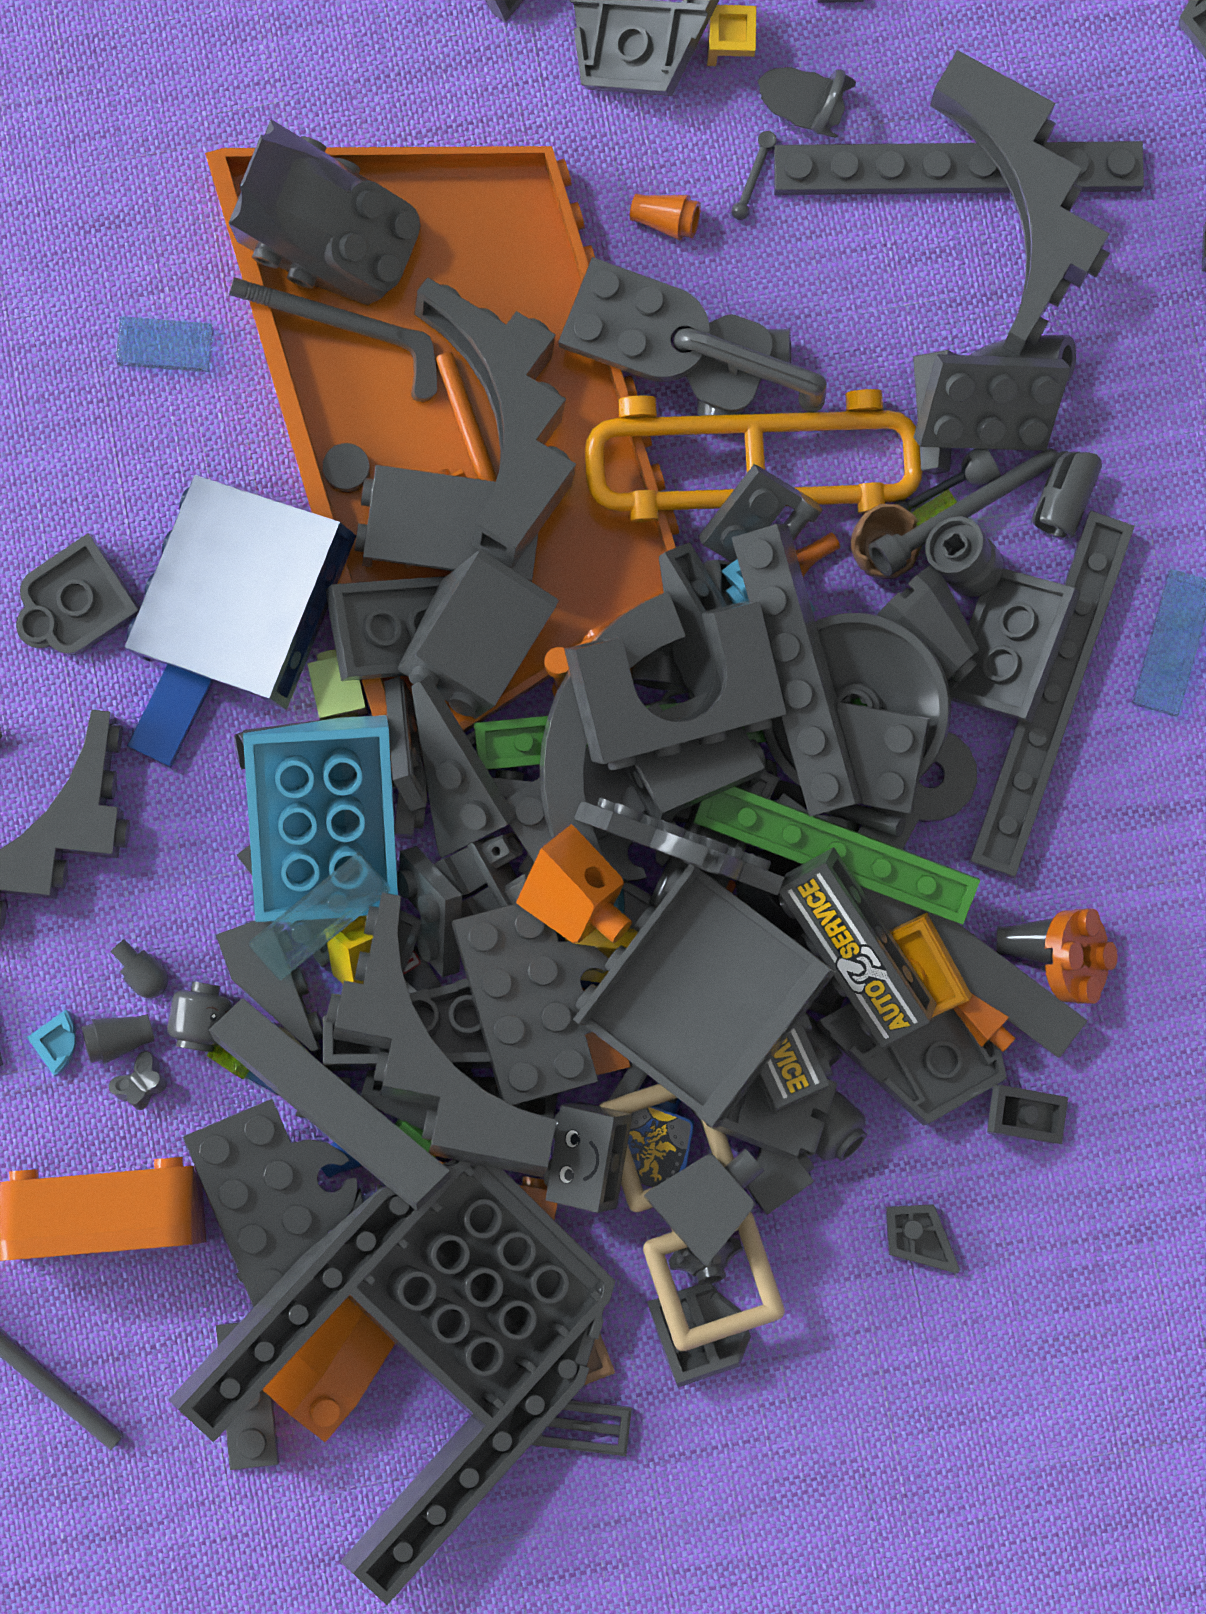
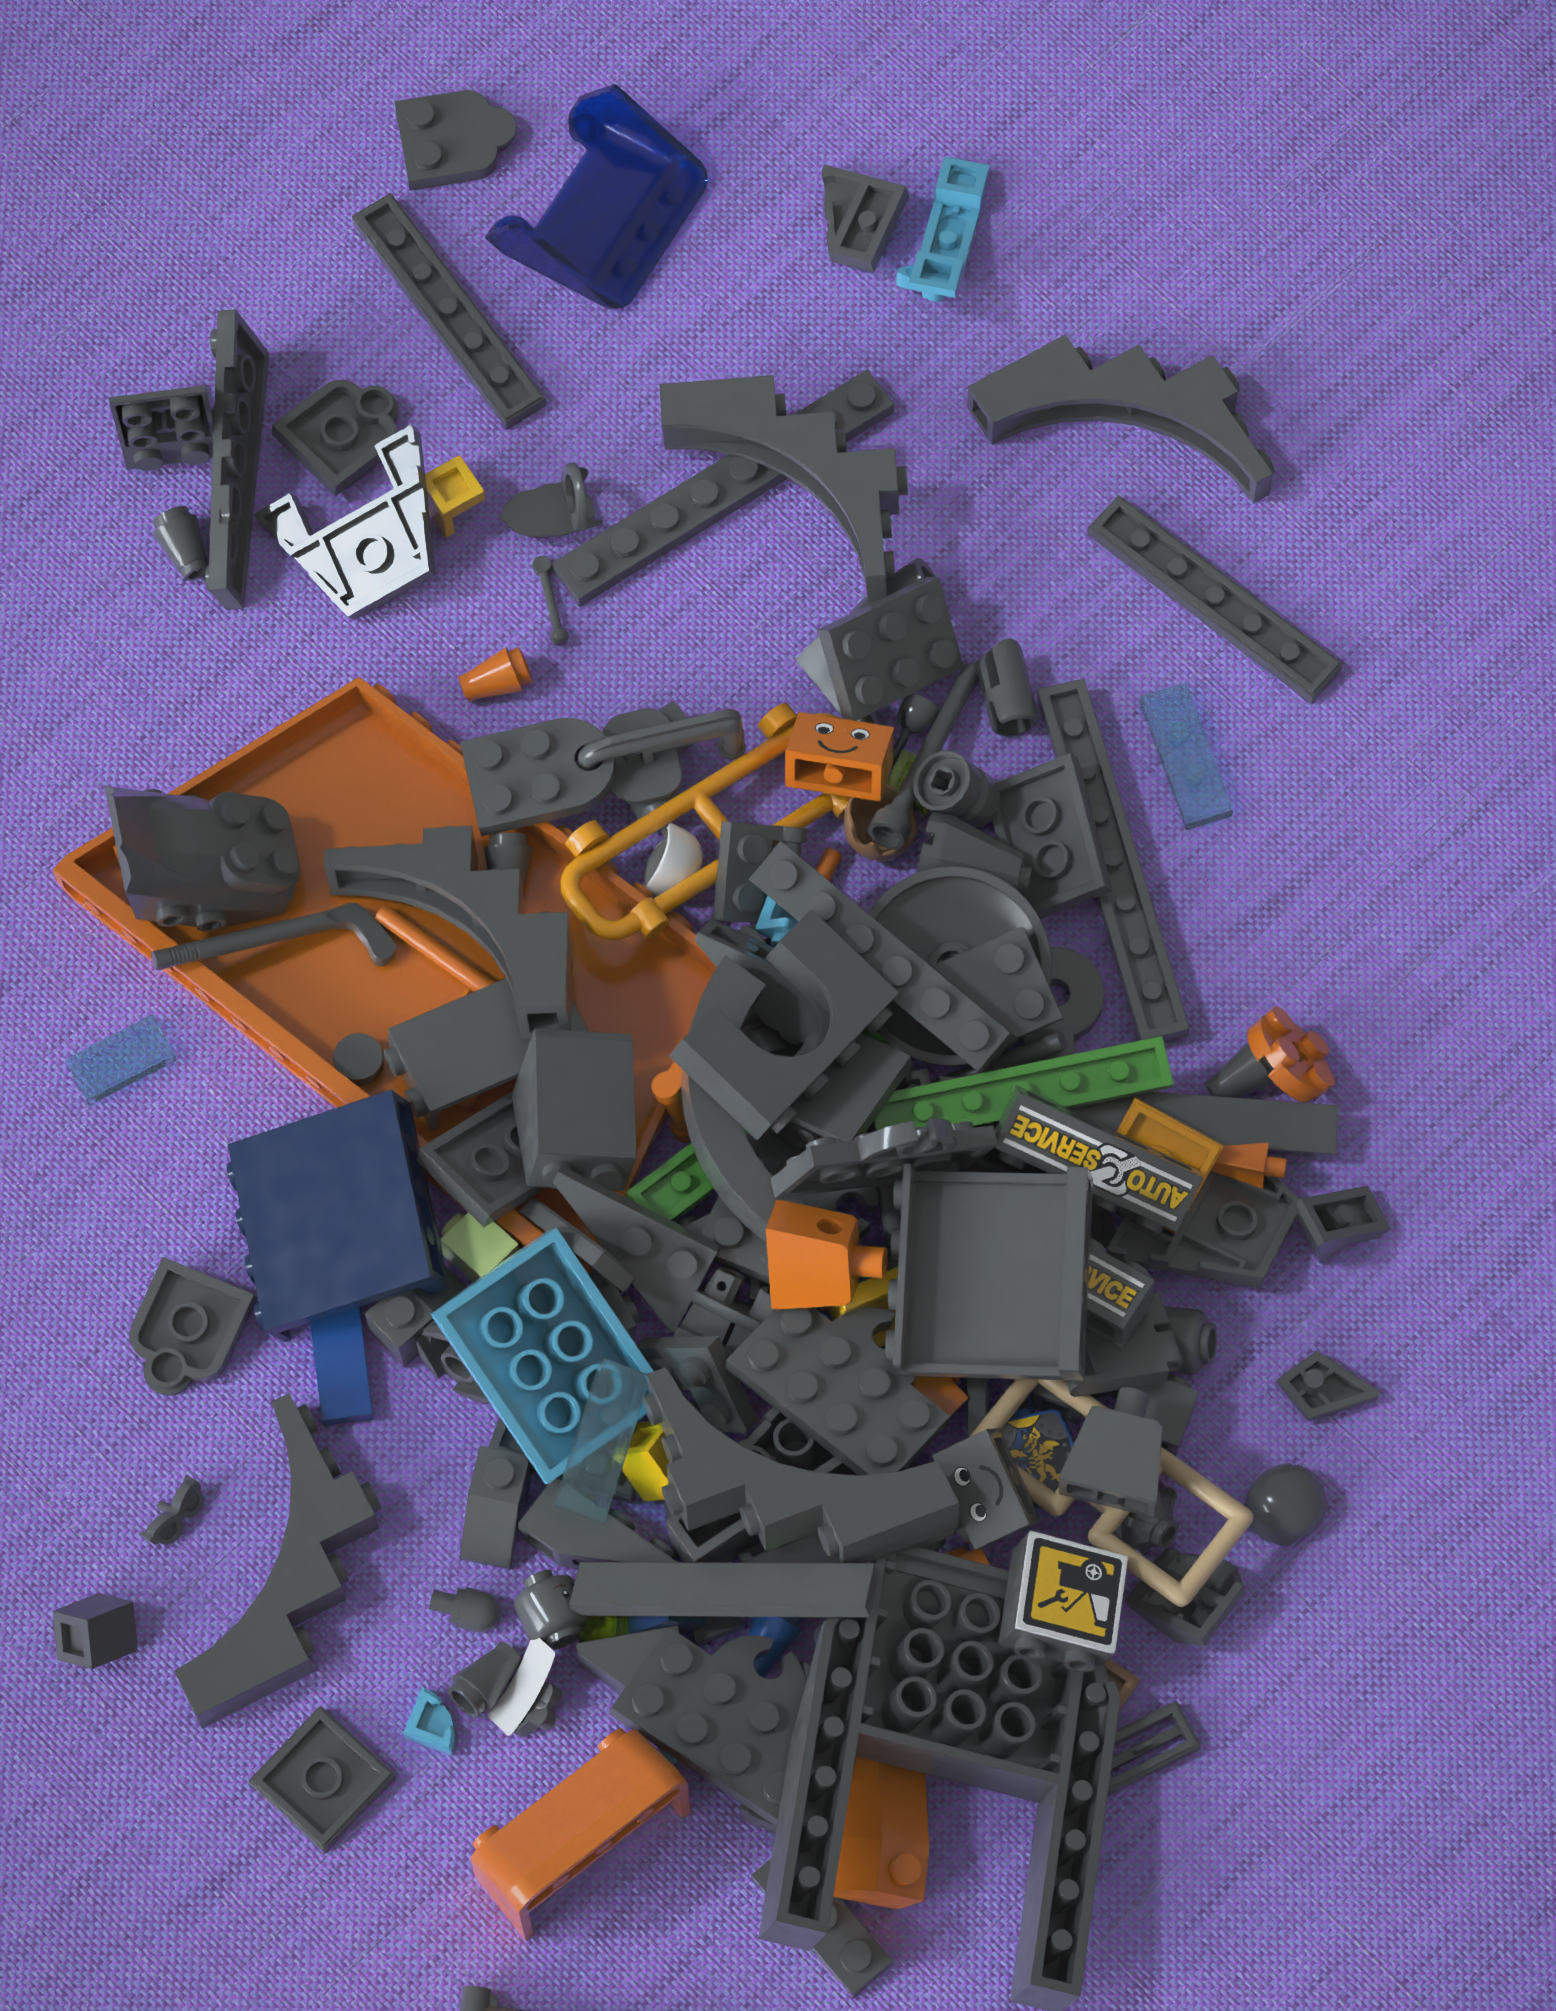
camera: 30 degrees left, 15 degrees down
(139, 1064) = (524, 1687): none -> white sticker
(211, 906) = (495, 1507): none -> dark grey slope
(229, 1094) = (618, 1657): none -> dark grey slope
(239, 710) = (402, 1317): none -> dark grey slope
(571, 378) = (509, 852): none -> dark grey cone
(585, 1288) = (1063, 1602): none -> piece
(698, 466) = (672, 860): none -> white hair
(824, 1309) = (1286, 1503): none -> dark grey hair
(887, 468) = (839, 756): none -> orange brick

